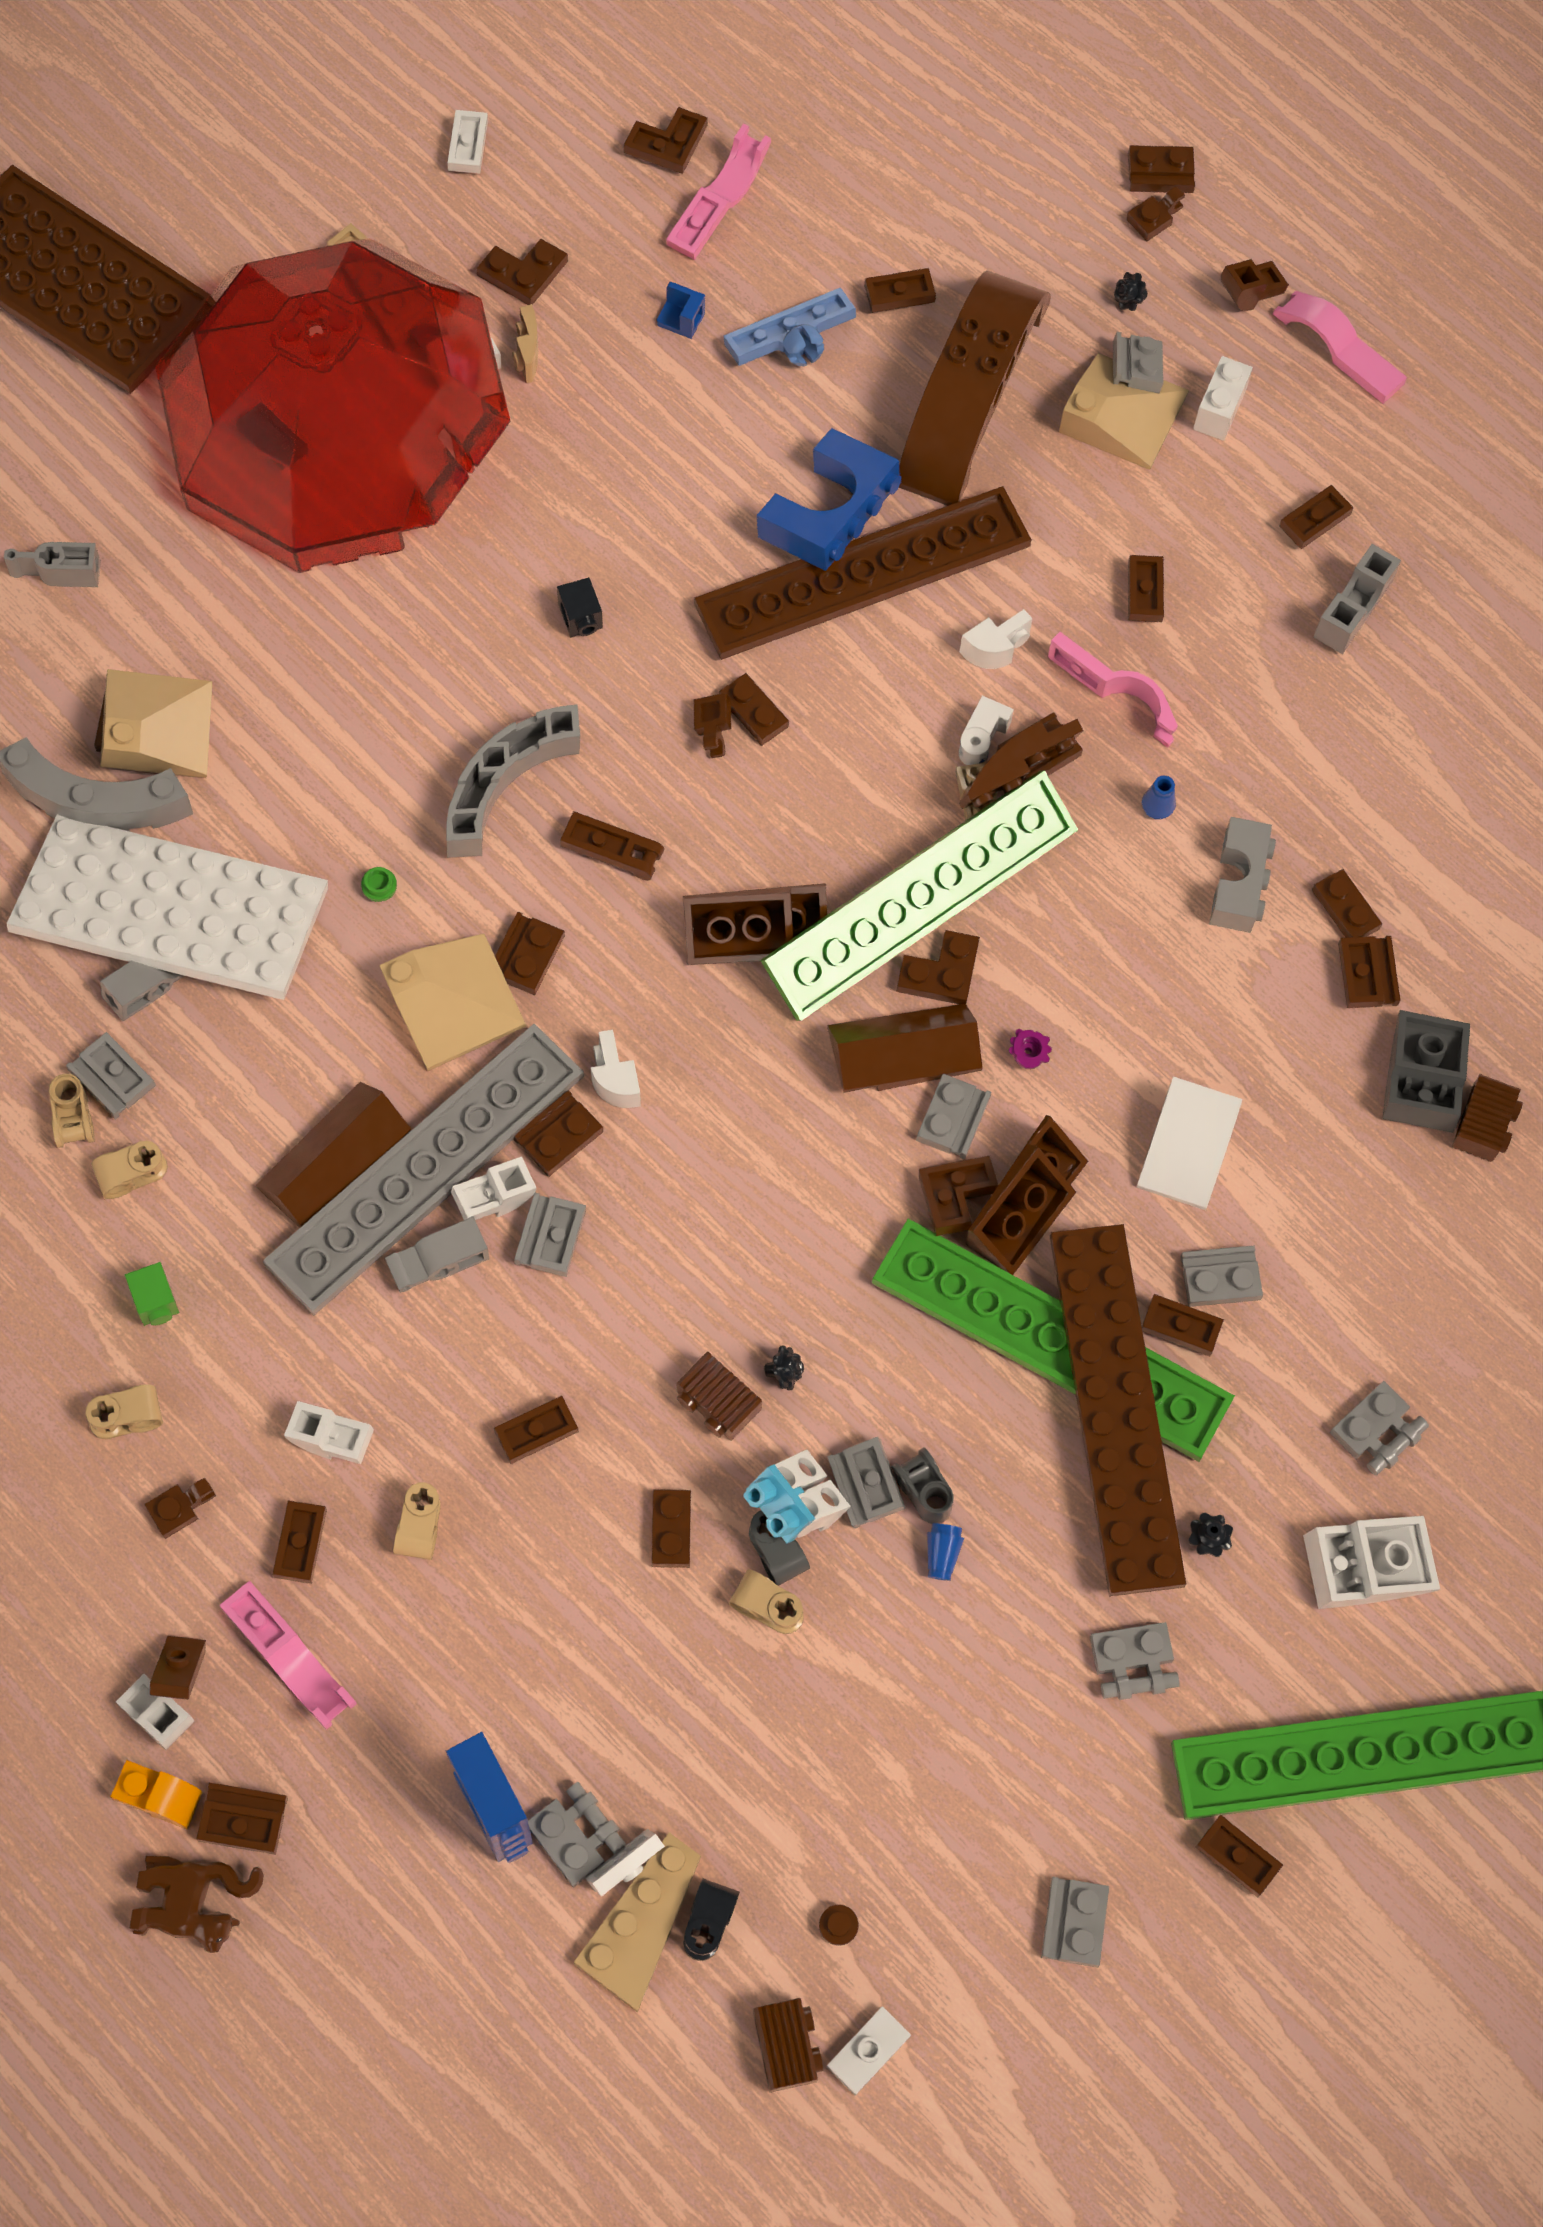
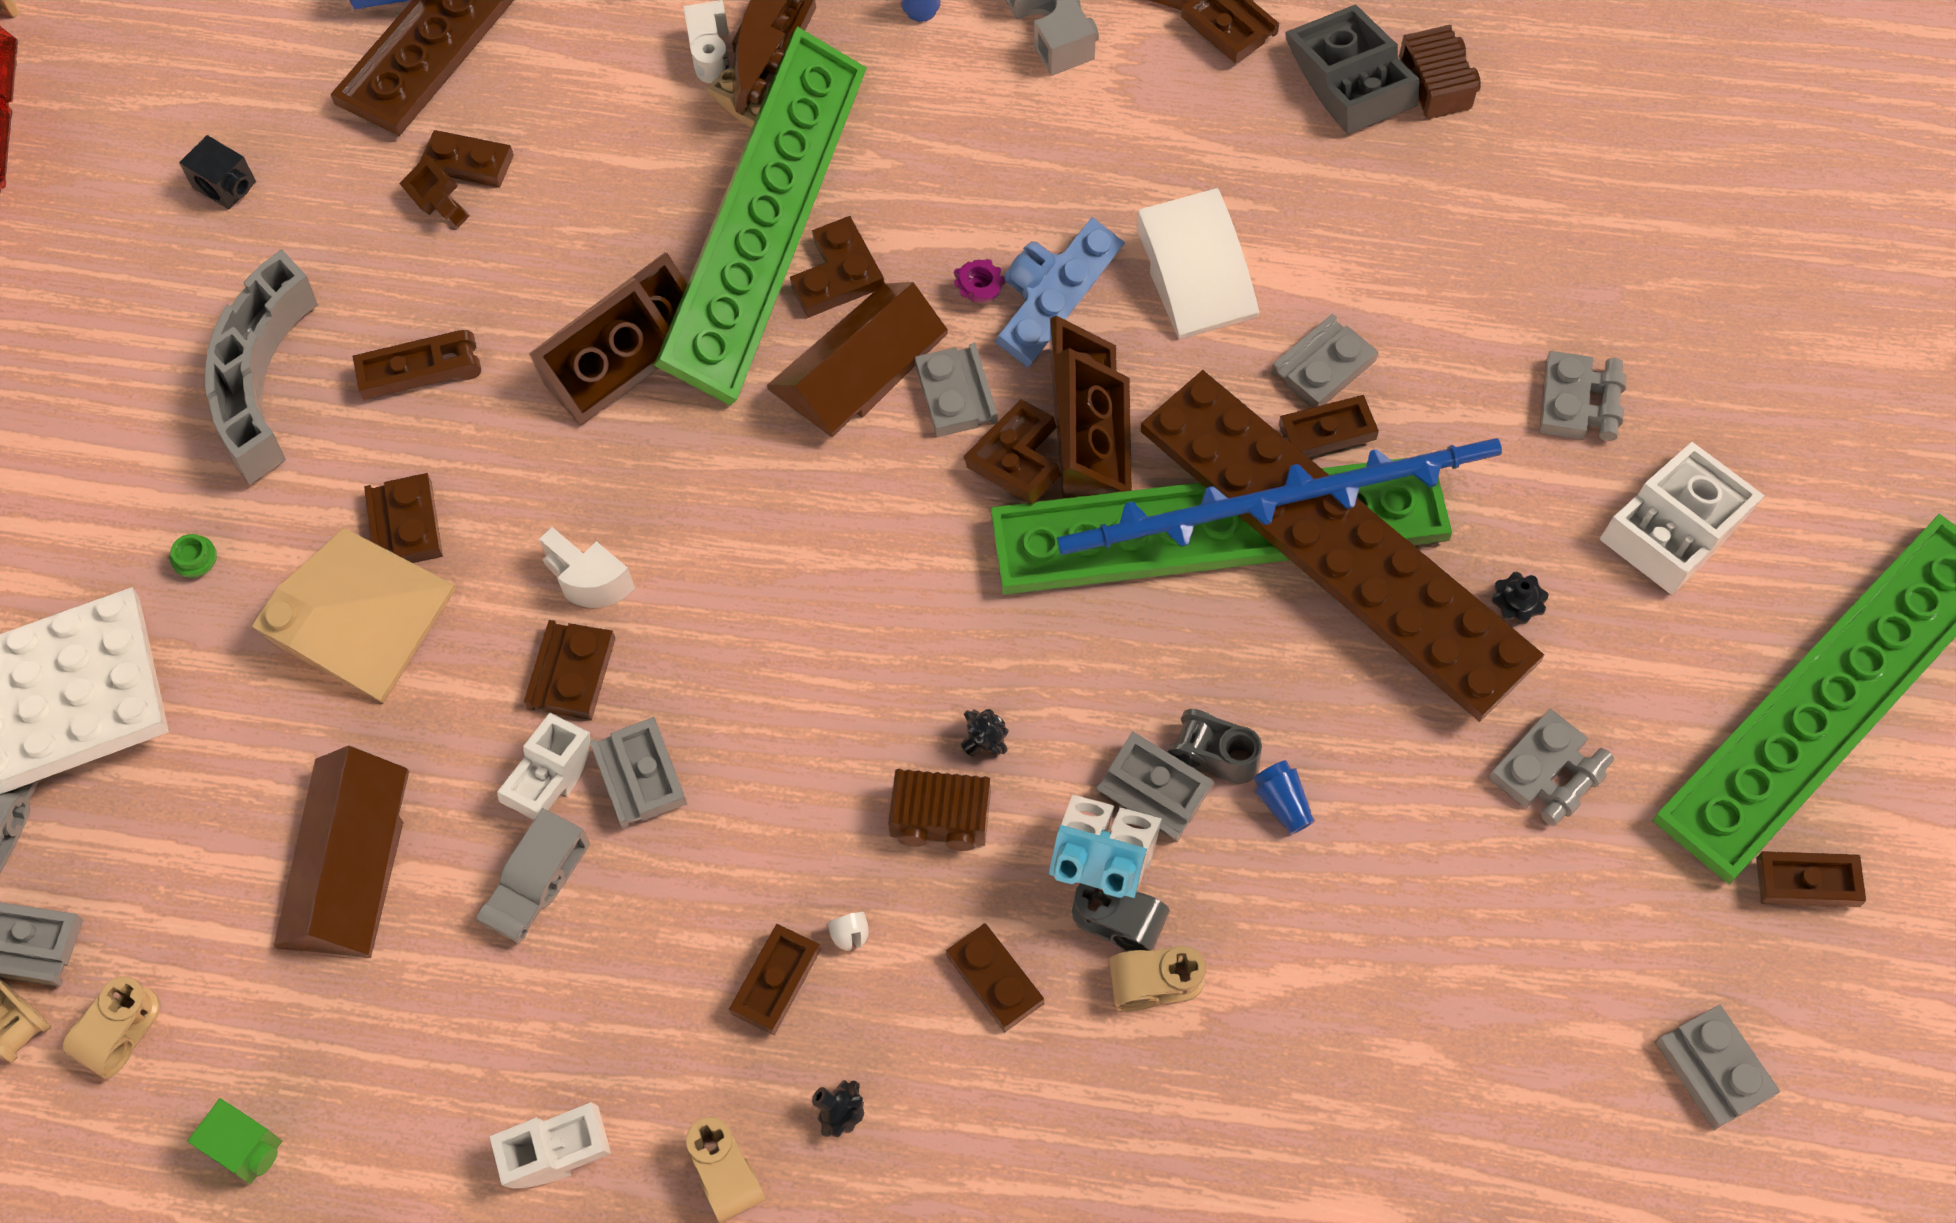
camera: 30 degrees left, 5 degrees down
(422, 1169) = (448, 810): light grey plate -> none
(515, 1538) = (839, 1108): none -> black plant
(605, 1430) = (848, 929): none -> white hinge
(1078, 1089) = (1053, 286): none -> medium blue plate
(1113, 1354) = (1262, 504): none -> blue plant

